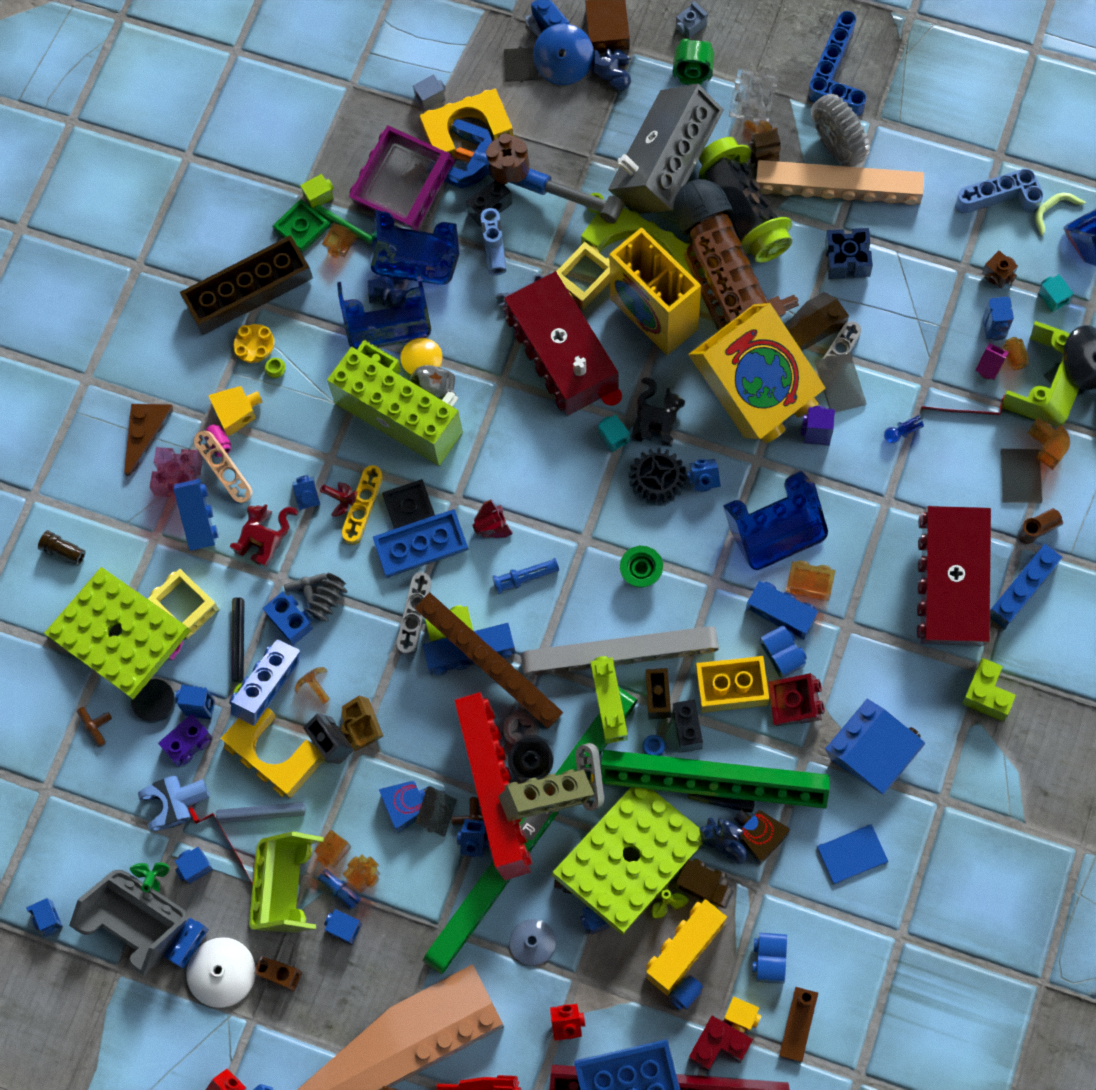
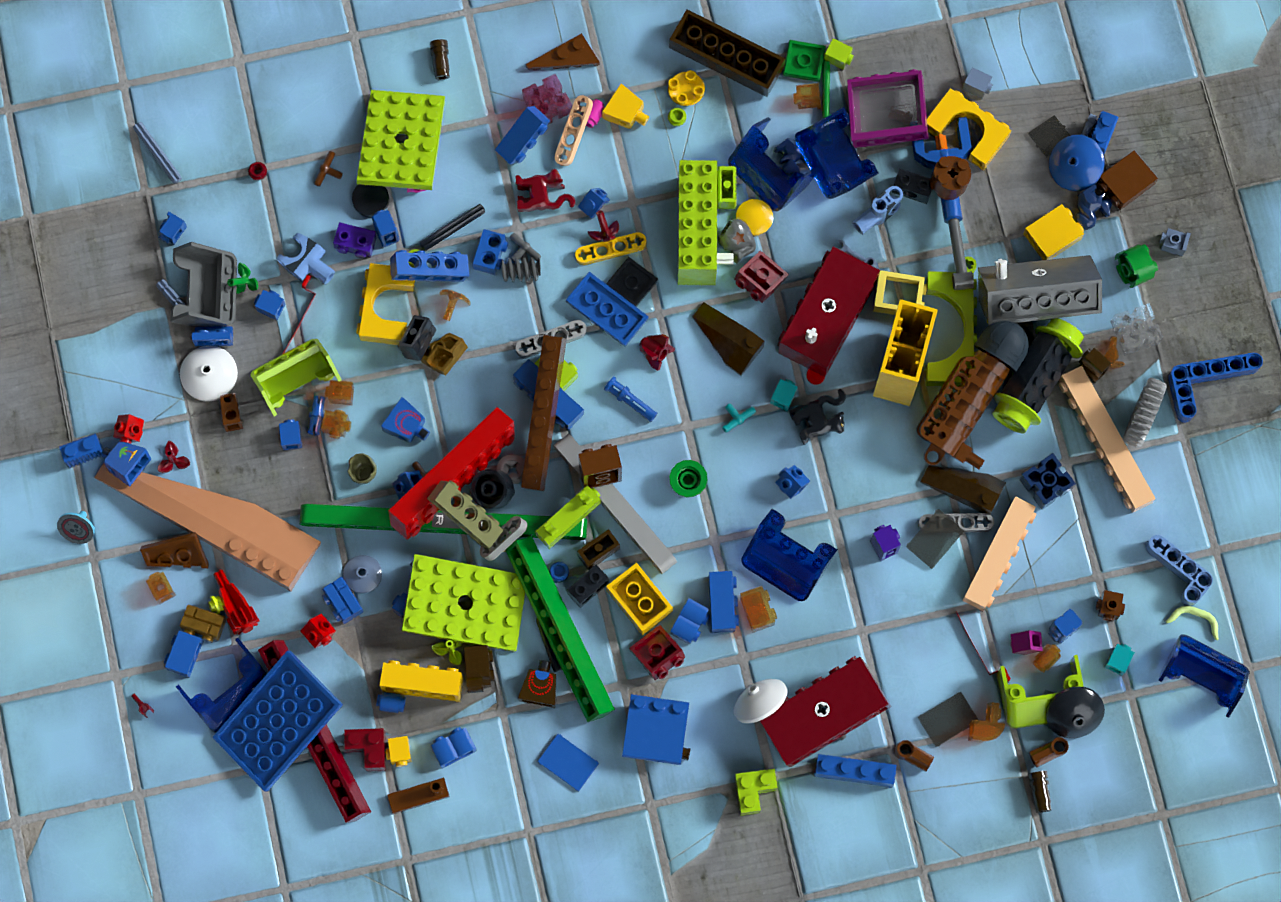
camera: 50 degrees right, 5 degrees up
(39, 794) = (253, 167): none -> dark red plate
(110, 961) = (169, 293): none -> sand blue axle
(200, 615) = (449, 188): light yellow window -> none
(260, 812) = (336, 326): sand blue axle -> none
(277, 1061) = (171, 452): none -> dark red plant
(425, 875) = (362, 468): none -> olive hair
(436, 811) = (412, 447): clear smoke piece -> none
(484, 385) = (760, 277): none -> dark red plate
(527, 448) = (729, 338): none -> dark brown wedge
(549, 978) = (342, 600): none -> blue brick
(582, 635) = (600, 466): none -> reddish brown brick
(609, 488) = (738, 419): none -> teal piece
(615, 113) = (1054, 233): none -> yellow brick
(666, 473) = (764, 442): black gear -> none
(722, 839) = (519, 660): dark blue animal -> none
(758, 373) = (894, 470): yellow brick -> none
(891, 336) = (999, 553): none -> light nougat brick
(893, 434) = (918, 602): clear blue pin -> none
(906, 630) = (760, 700): none -> white dish

